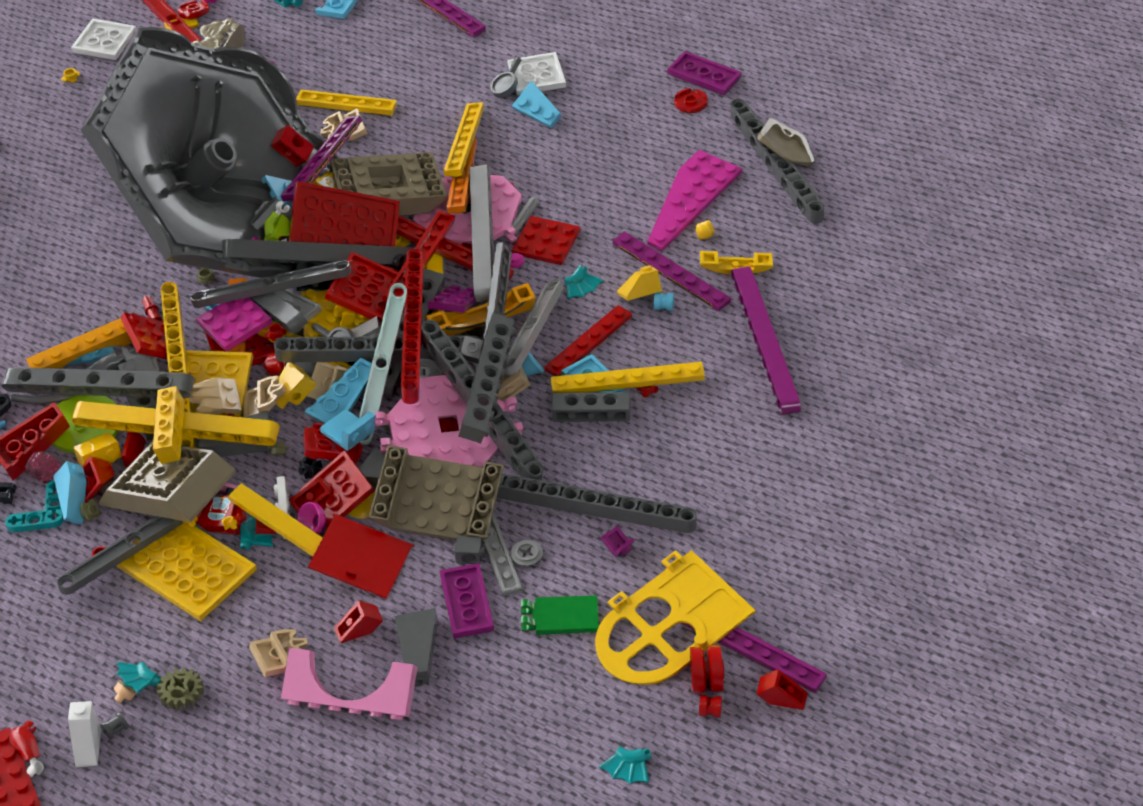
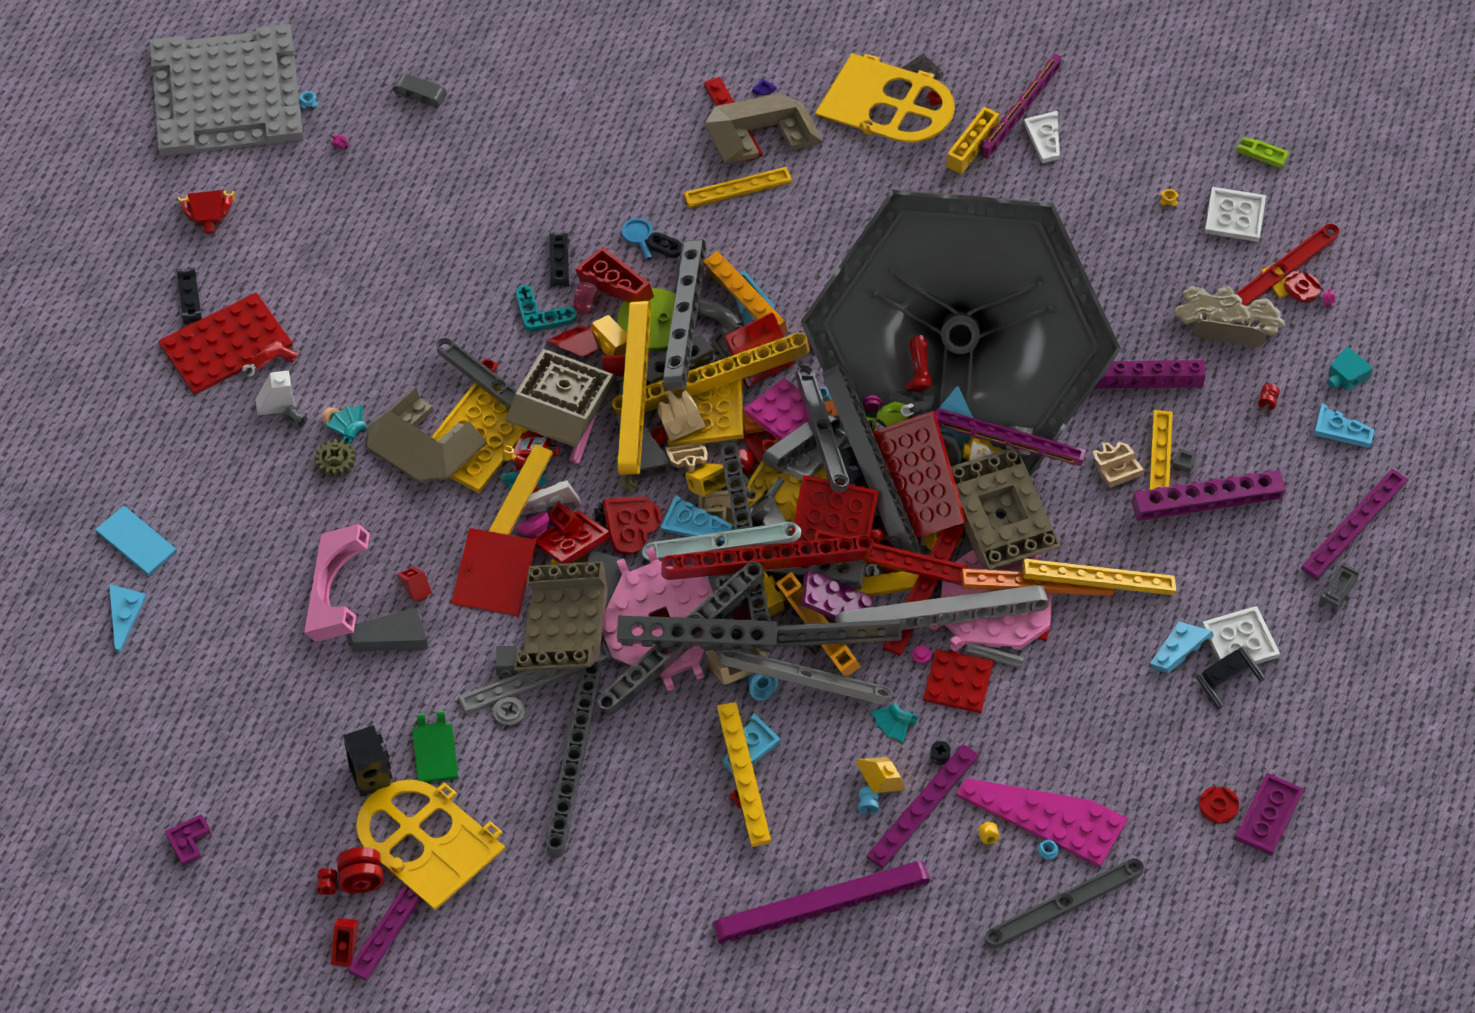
camera: 80 degrees right, 10 degrees up
(43, 18) = (1263, 152): none -> lime hinge
(71, 490) = (555, 327): medium azure slope -> none
(89, 510) = (539, 342): olive plate -> none
(168, 425) = (611, 376): yellow brick -> none
(185, 621) = (403, 445): none -> dark tan slope
(223, 192) = (922, 379): none -> red piece
(273, 652) = (380, 524): tan plate -> none
(292, 146) = (1020, 417): red brick -> none
(300, 36) = (1268, 396): none -> red wheel
(348, 429) = (642, 530): medium azure bracket -> none
(351, 88) = (1184, 460): none -> dark grey plate
(393, 75) = (1200, 501): none -> magenta brick
(466, 600) = (447, 667): magenta plate -> none
(471, 349) = (743, 612): light grey brick -> none
(499, 16) = (1339, 587): none -> dark grey window
(506, 82) = (1216, 608): piece -> none
(569, 82) = (1224, 670): none -> black plate
(581, 654) = (367, 760): none -> black piece
(589, 340) = (806, 737): red plate -> none
(591, 407) = (705, 718): dark grey brick -> none
(617, 542) = (524, 786): magenta bracket -> none
(620, 254) = (944, 754): none -> black wheel
(628, 765) = (262, 821): teal arm -> none
(723, 197) = (1048, 844): none -> medium azure plate
(759, 263) = (938, 865): yellow slope -> none
(782, 201) = (1052, 909): none -> dark grey beam
(783, 170) = (1116, 898): dark grey beam -> none
(786, 142) = (1133, 901): dark tan animal -> none

